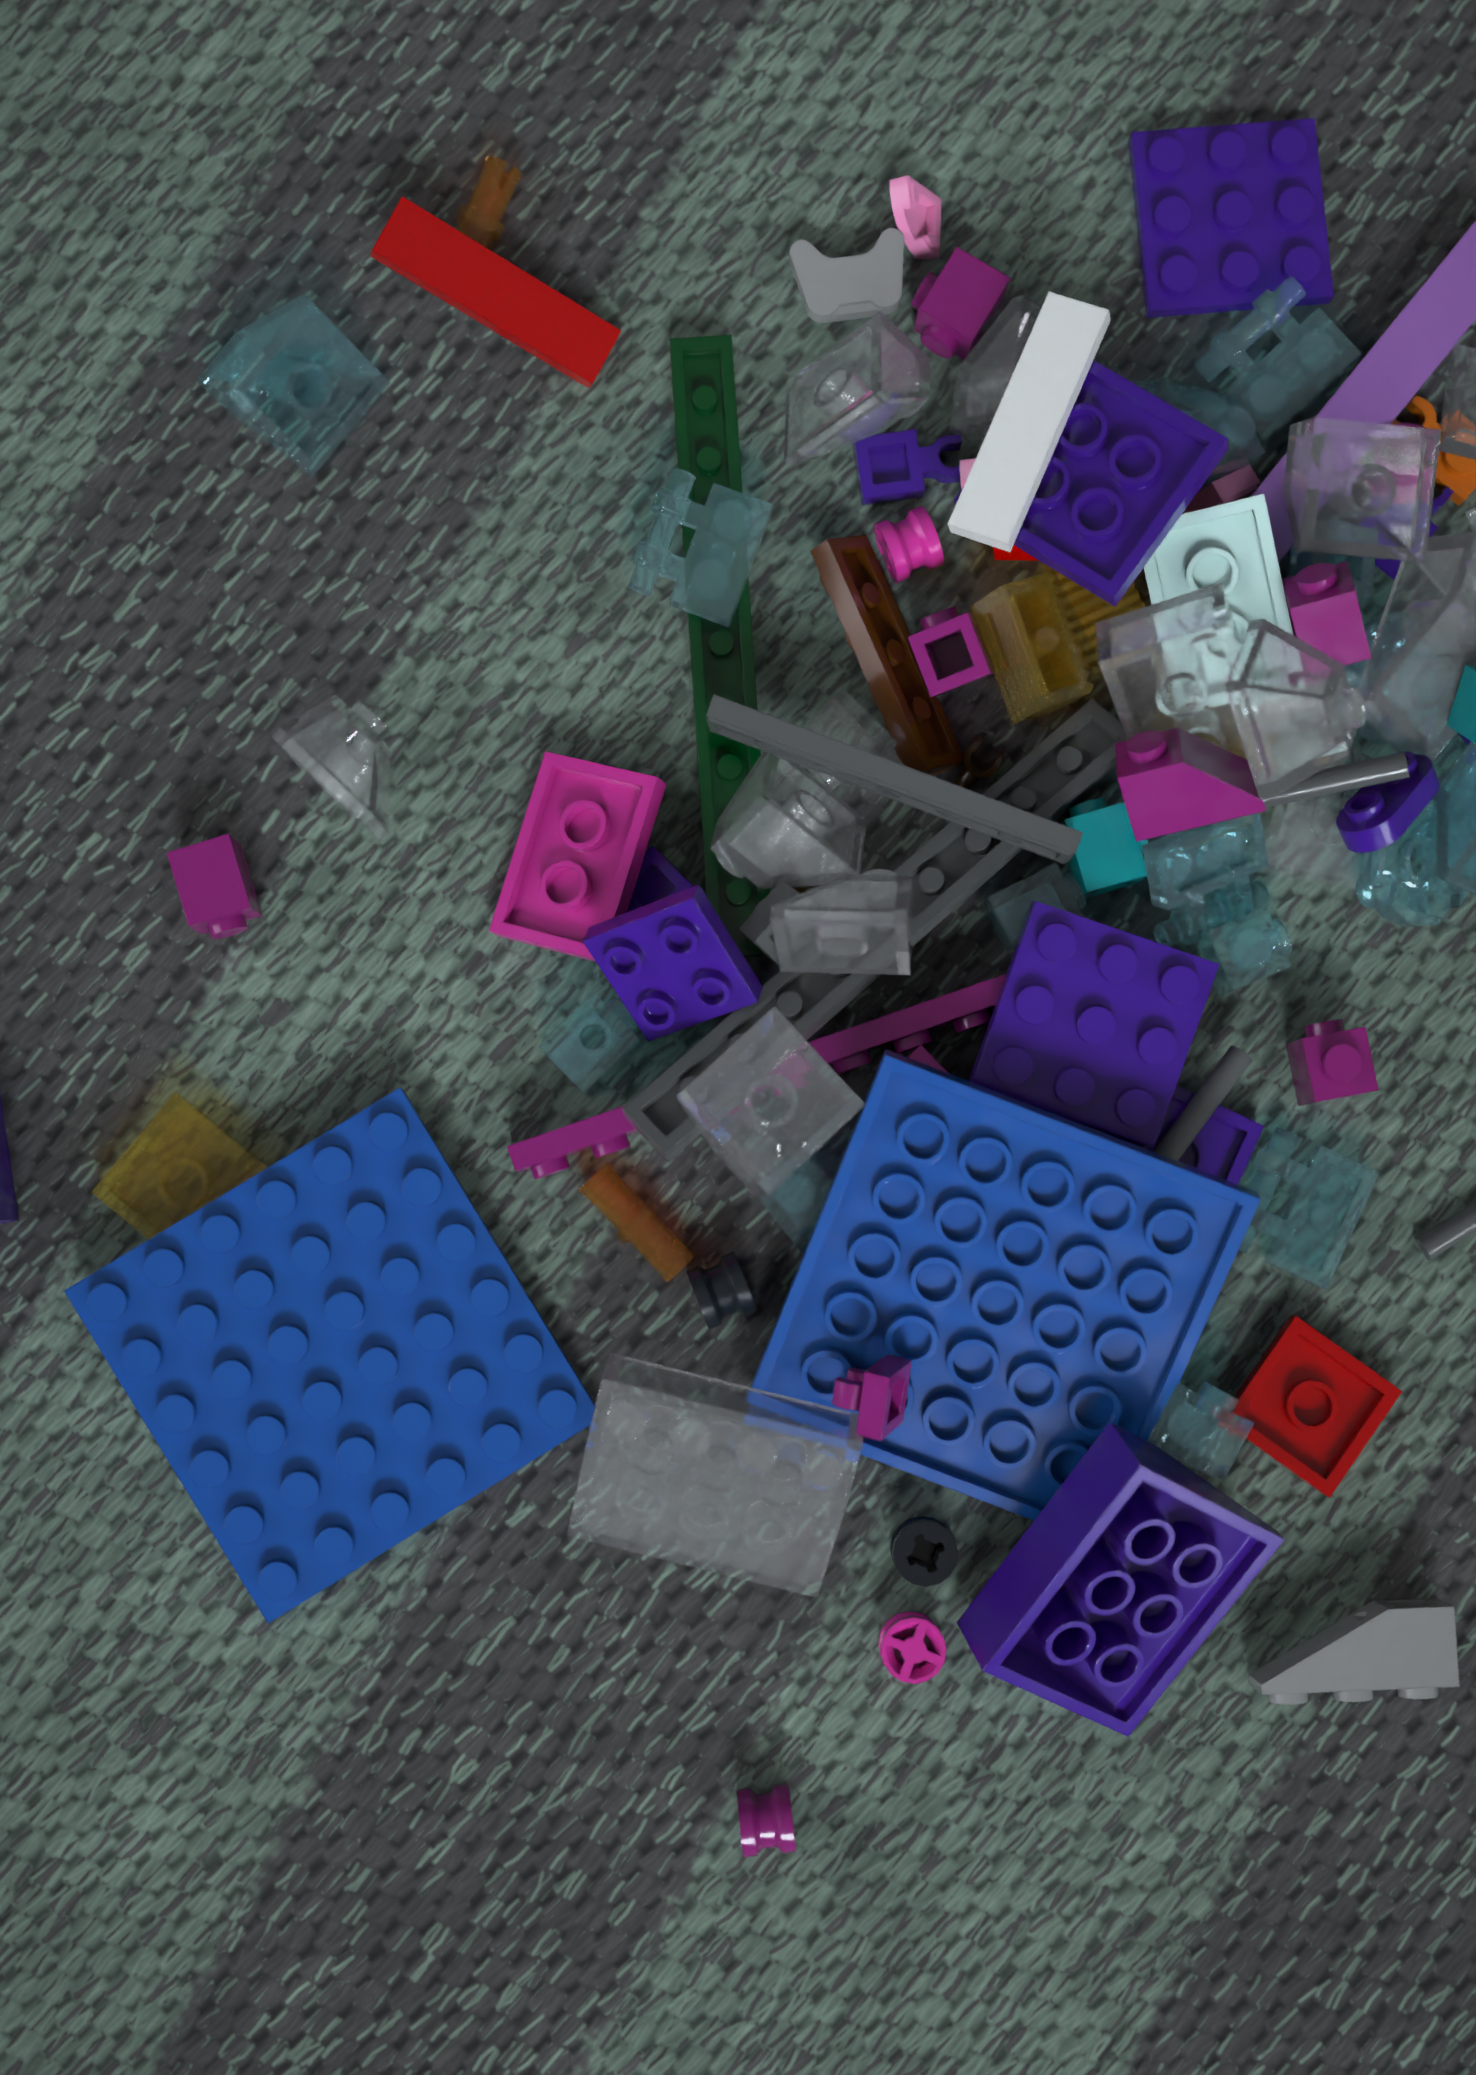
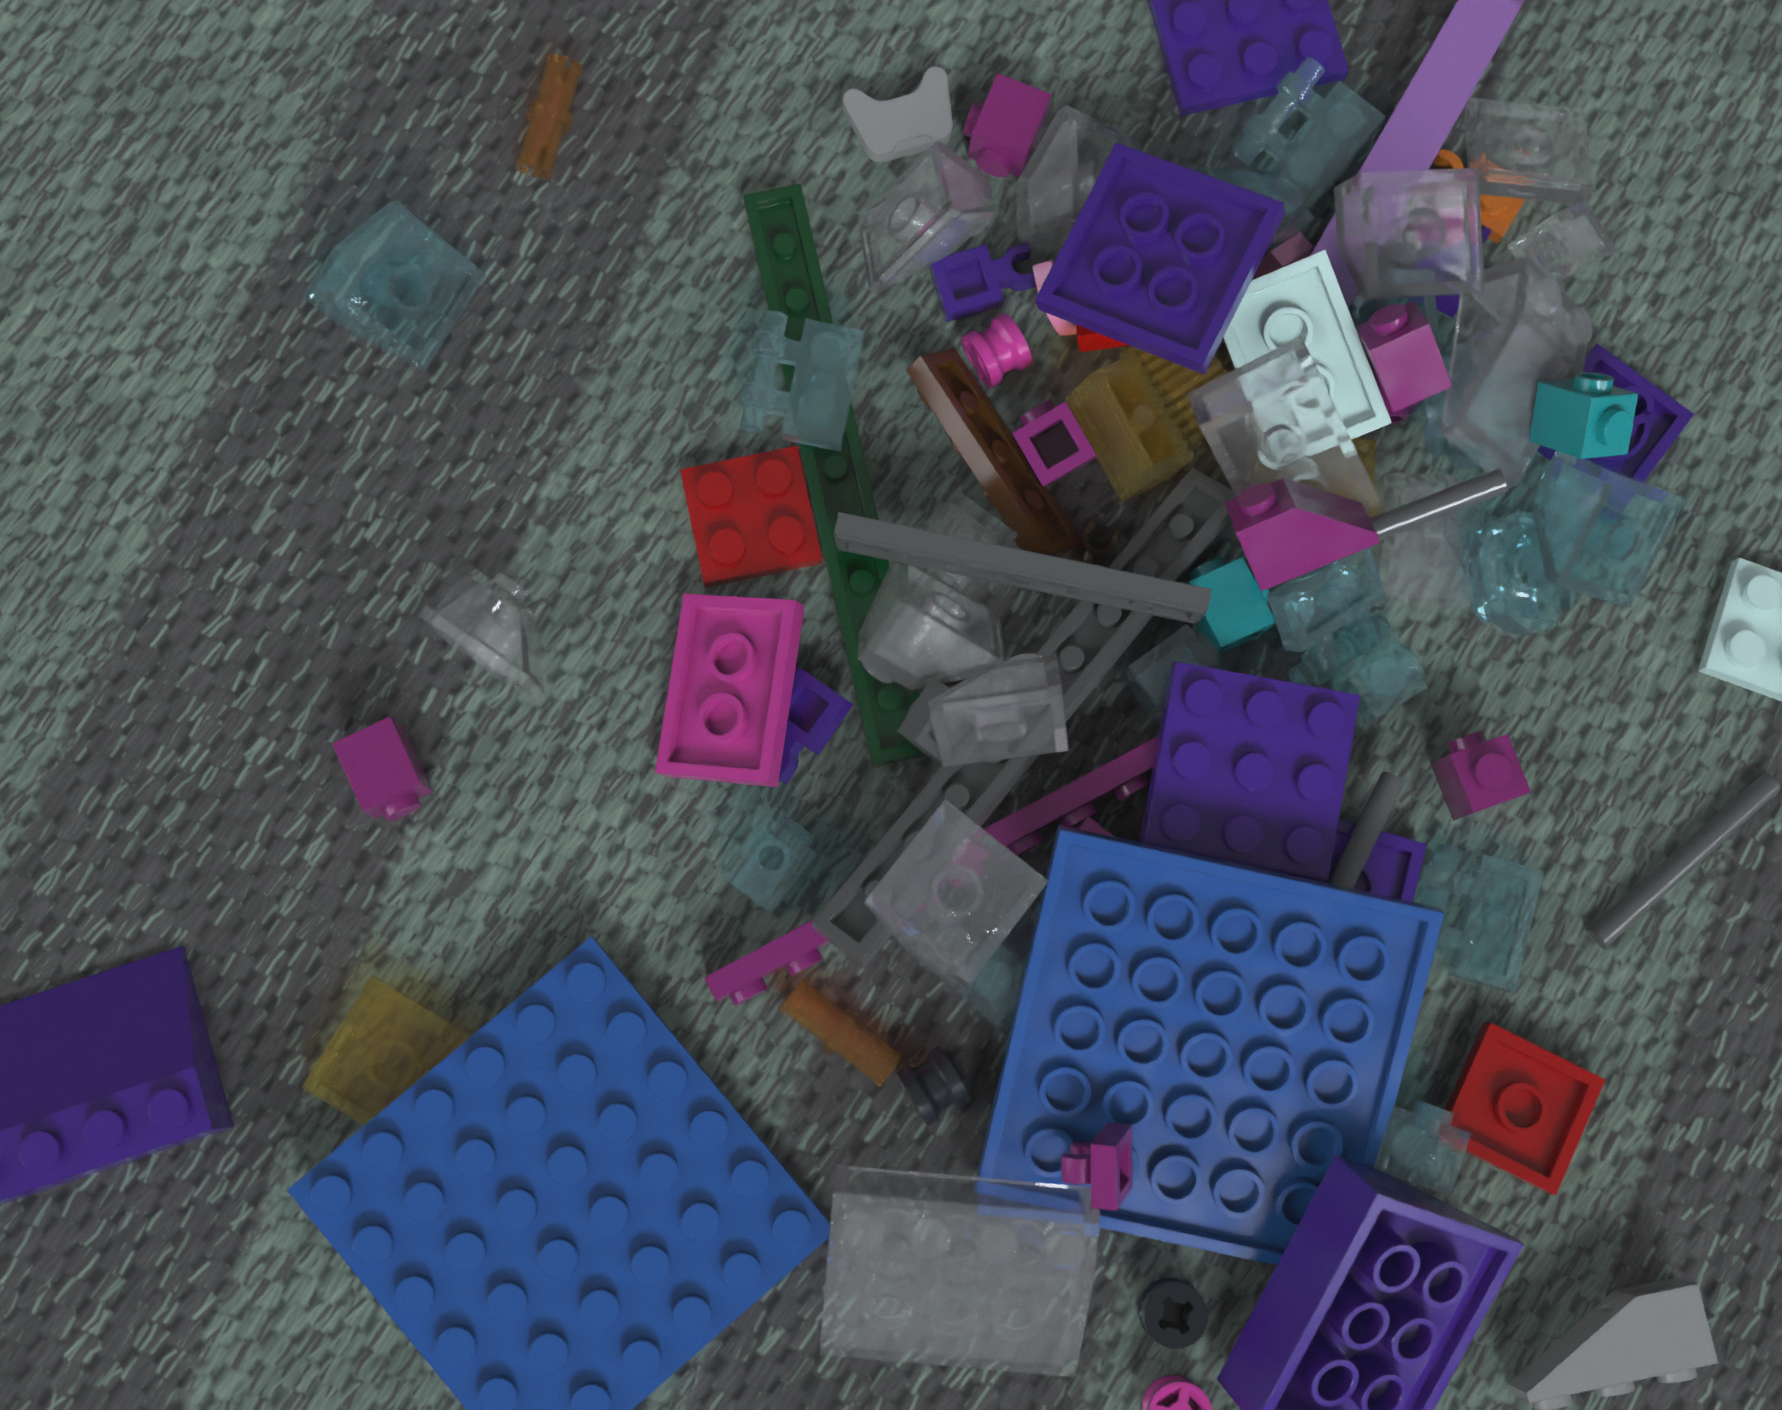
camera: 10 degrees left, 5 degrees down
(495, 292) = (573, 176): red tile -> none
(626, 680) = (751, 516): none -> red plate
(673, 963) = (839, 774): dark purple plate -> none
(917, 216) = (955, 53): bright pink tile -> none
(1029, 421) = (1094, 217): white tile -> none
(1290, 707) = (1388, 442): clear slope -> none
(1386, 810) = (1489, 527): dark purple plate -> none

